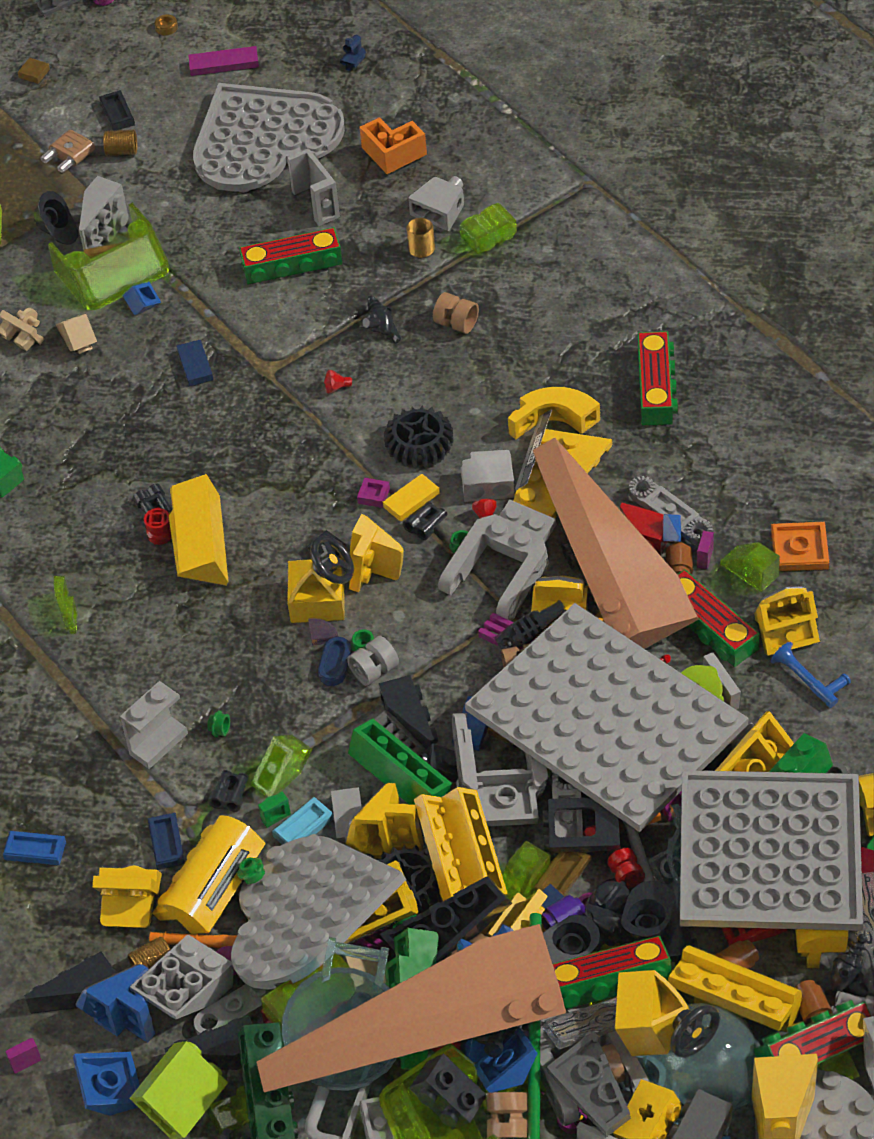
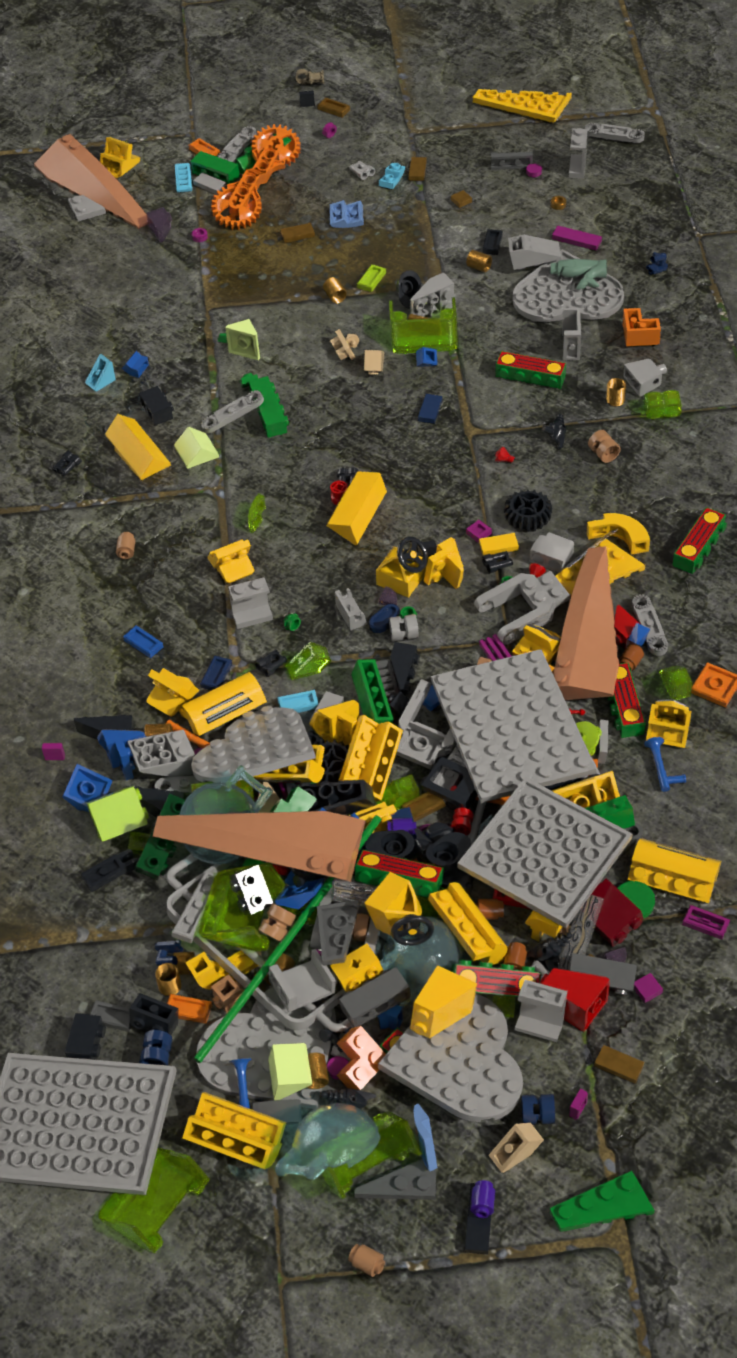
camera: 30 degrees right, 0 degrees up
(69, 148) = (448, 253): medium nougat piece -> none
(82, 682) = (232, 561): none -> yellow piece
(184, 101) = (532, 251): none -> light grey slope
(251, 870) = (245, 711): green plate -> none
(262, 96) = (577, 267): none -> sand green piece
(274, 809) = (286, 685): green plate -> none
(283, 672) = (349, 610): none -> light grey hinge
(529, 626) = (506, 650): black hinge -> none
(705, 549) = (652, 658): magenta tile -> none

